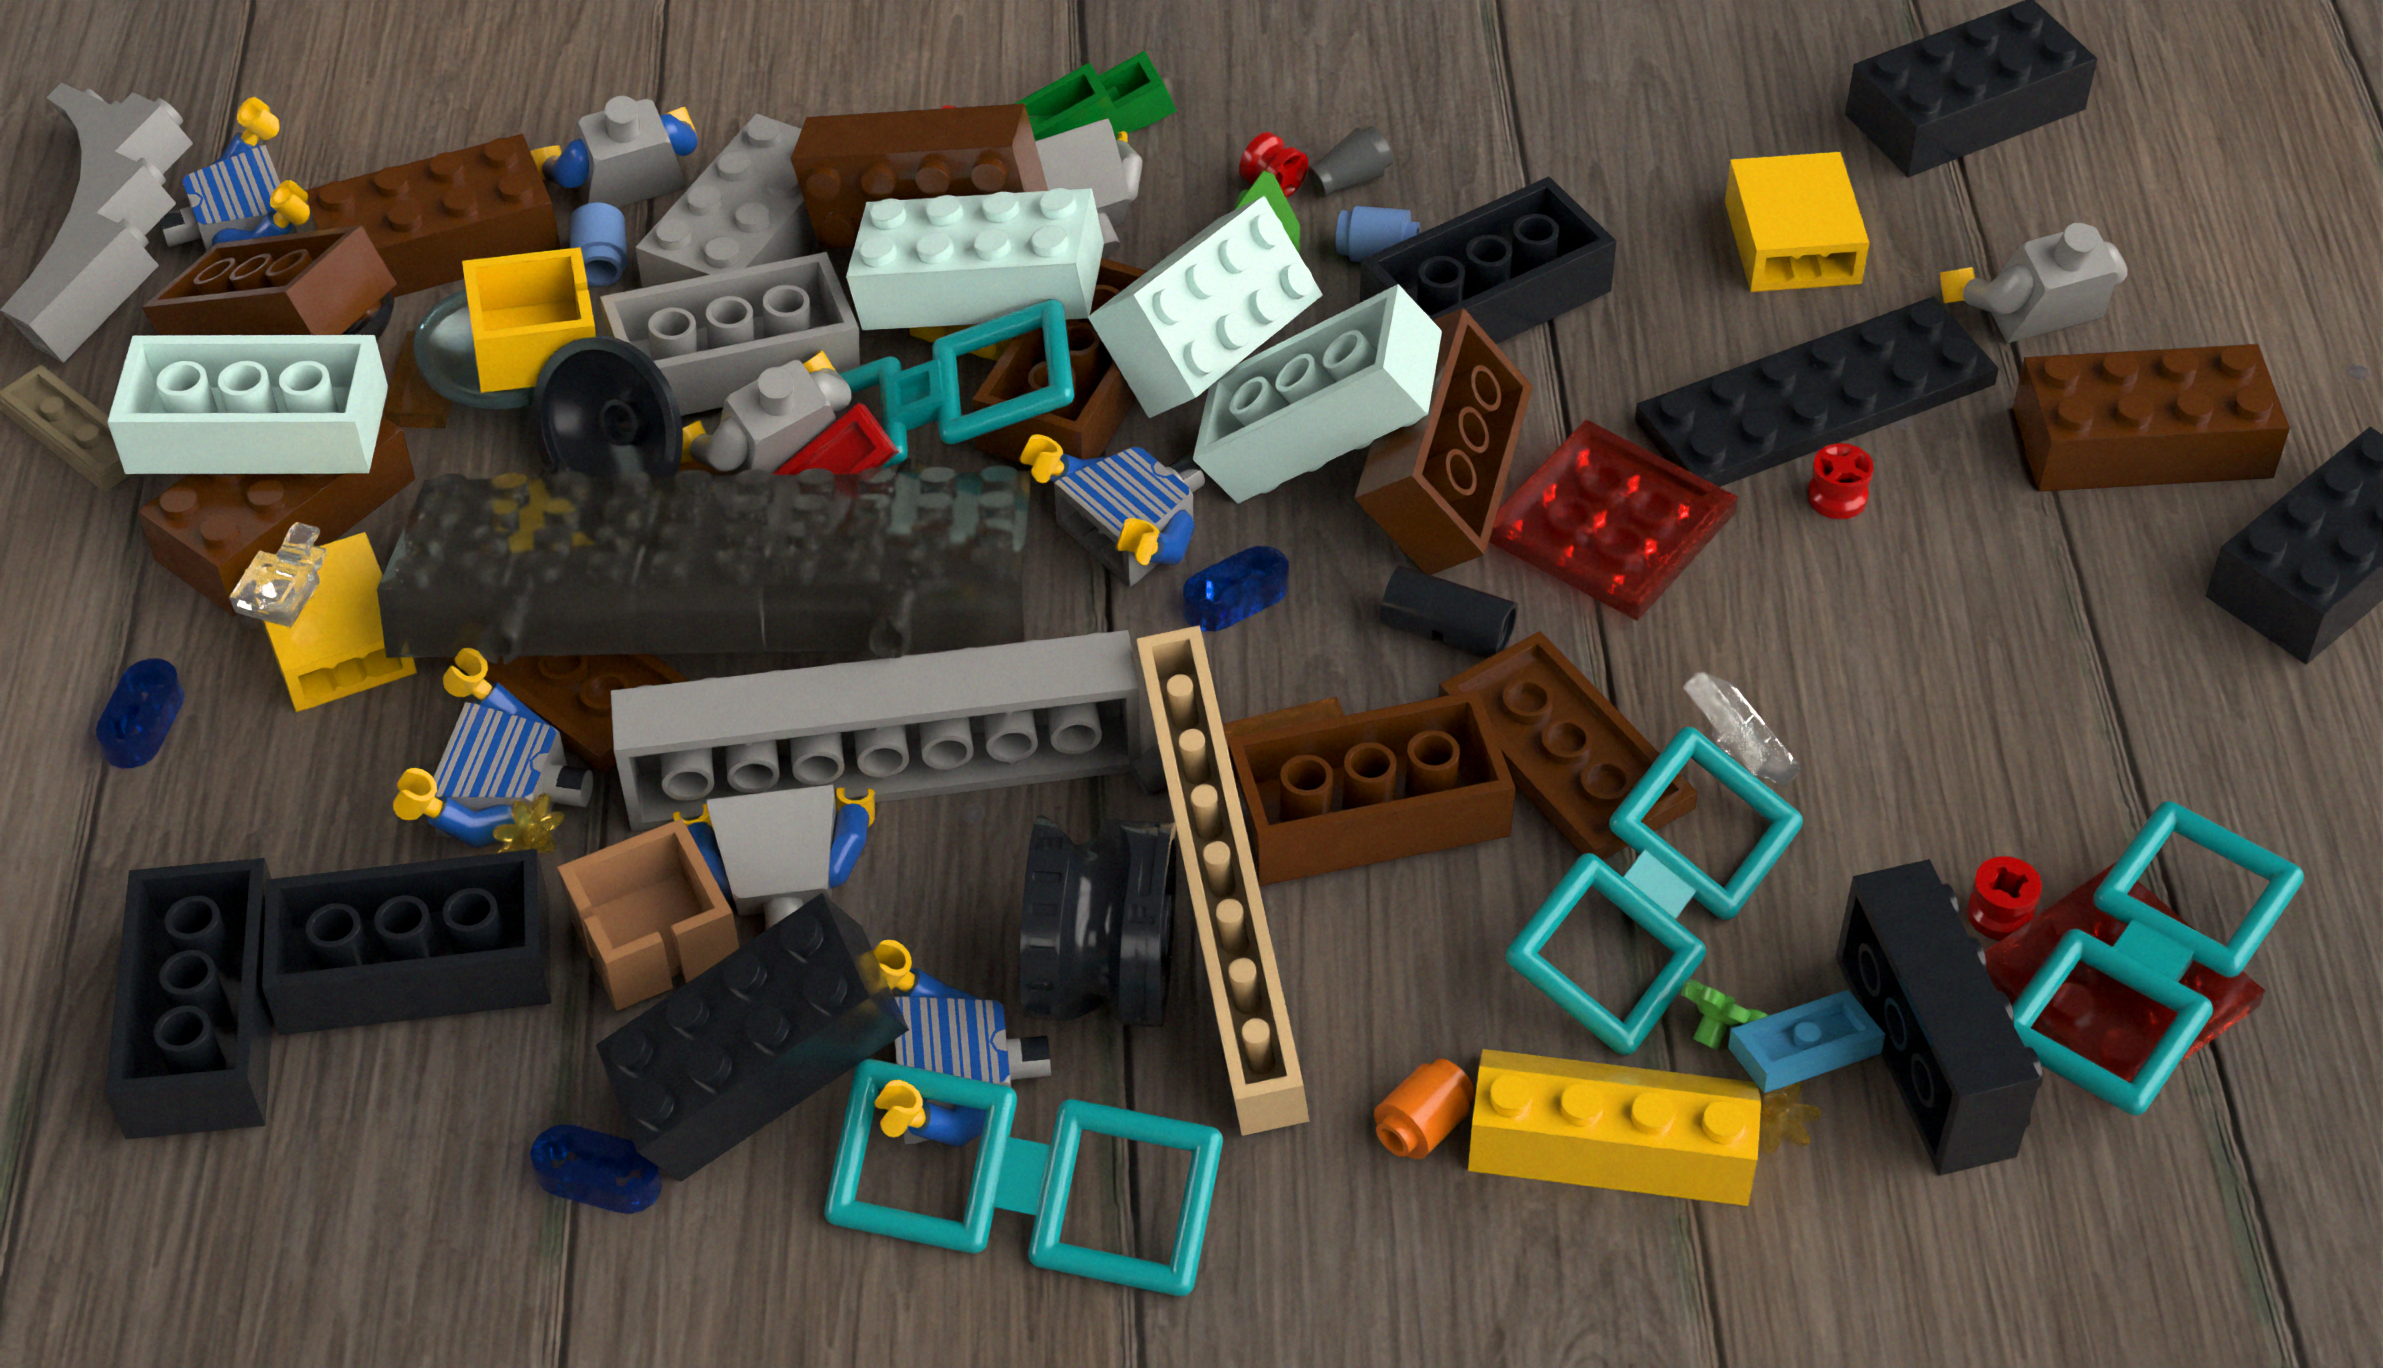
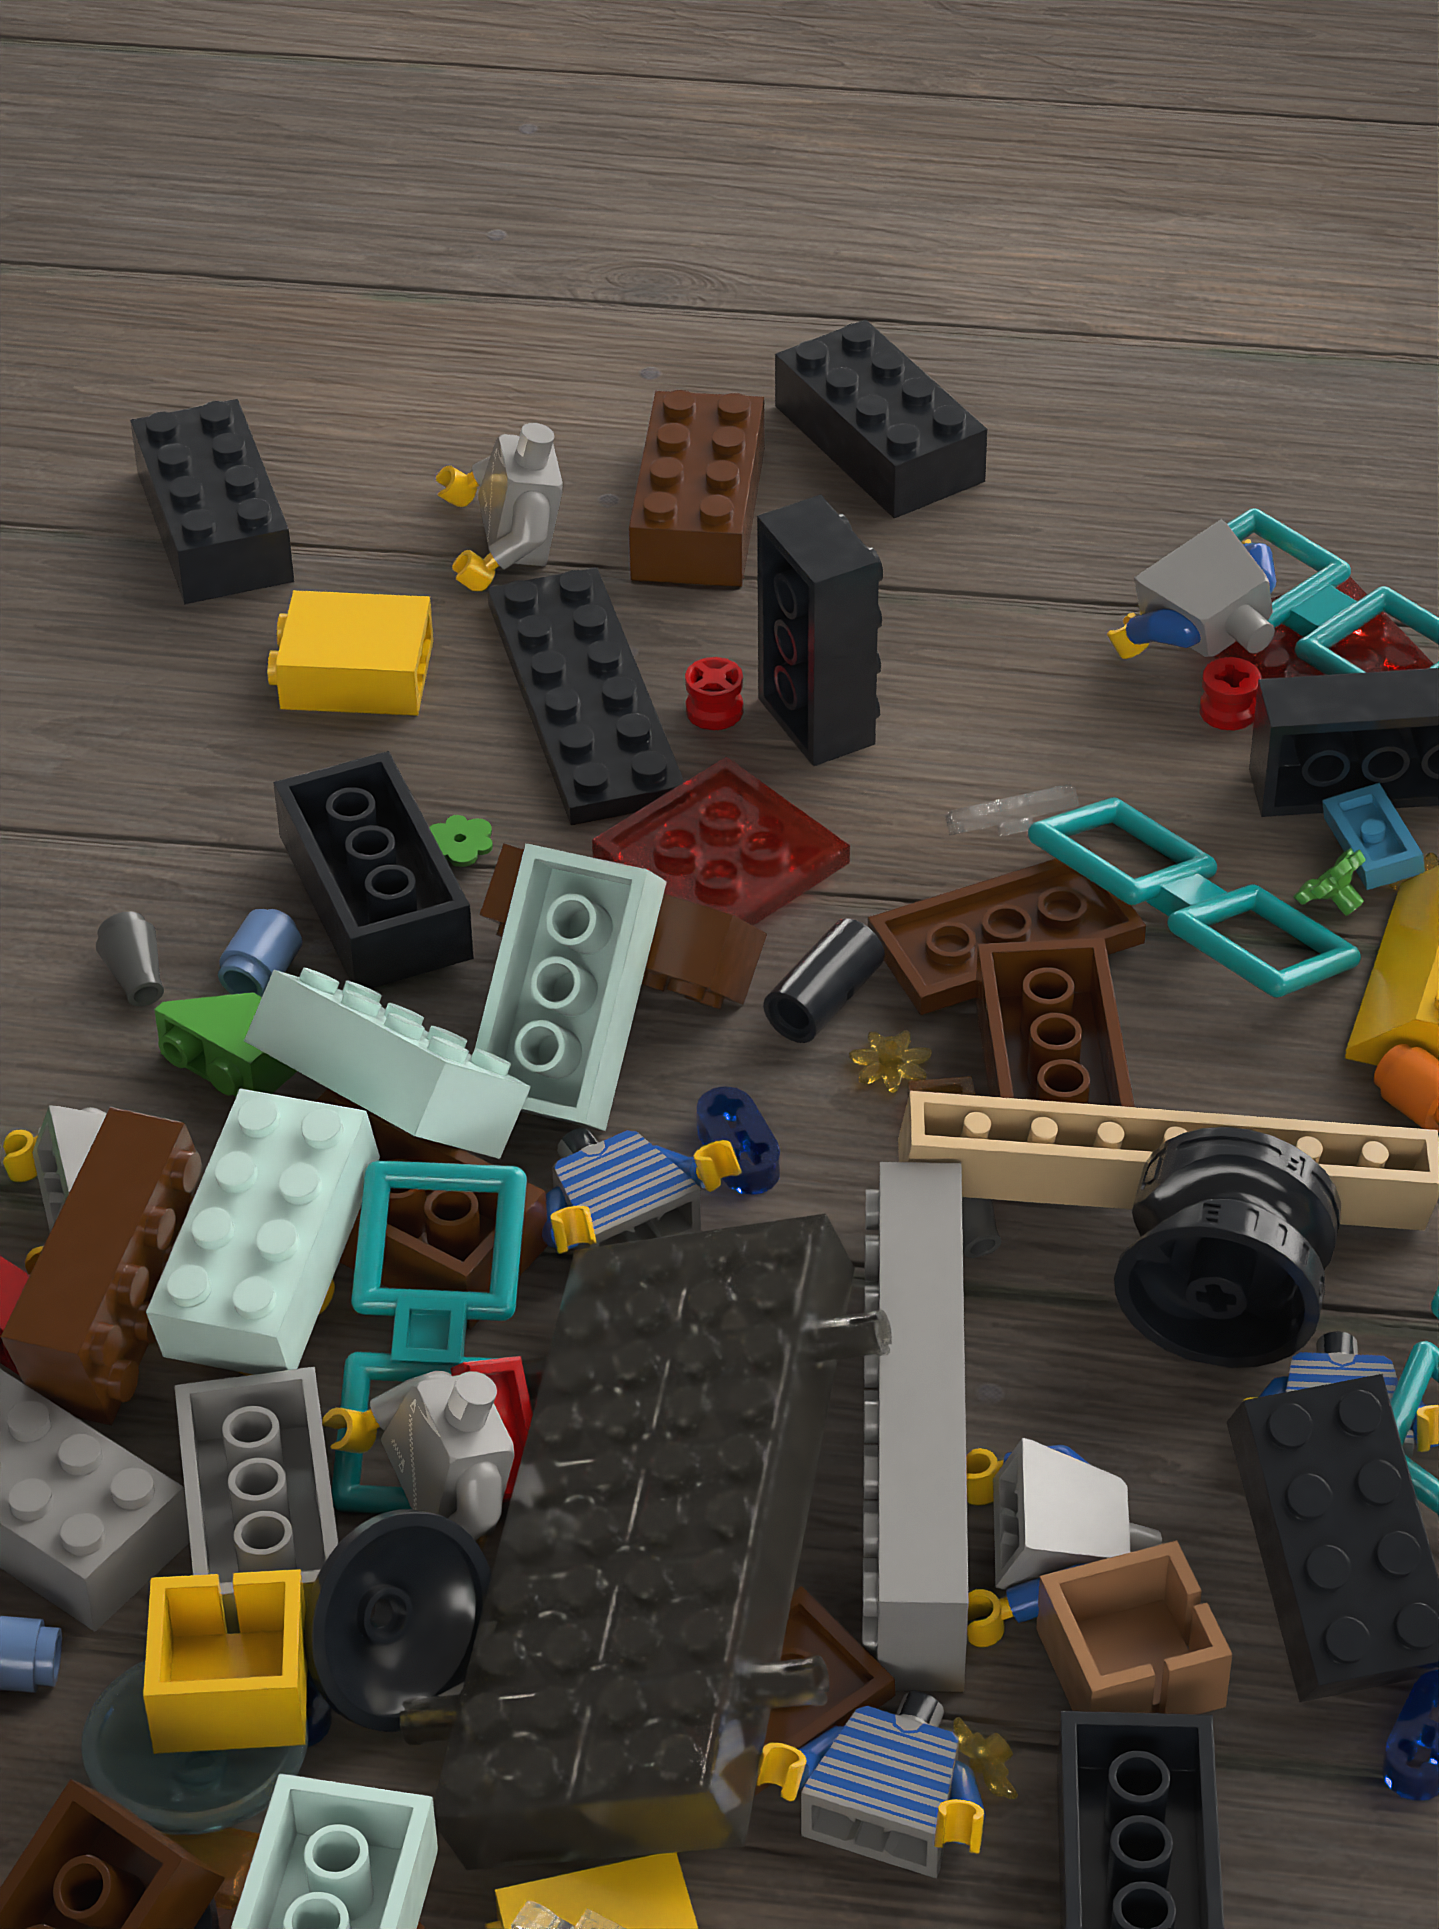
camera: 80 degrees left, 5 degrees down
(1269, 154) = (118, 1018): red wheel -> none
(1373, 685) = (890, 1059): none -> clear yellow plant
(1575, 341) = (463, 839): none -> bright green plant
(1869, 489) = (818, 629): none -> black brick
(2109, 830) = (1203, 597): none -> light grey torso

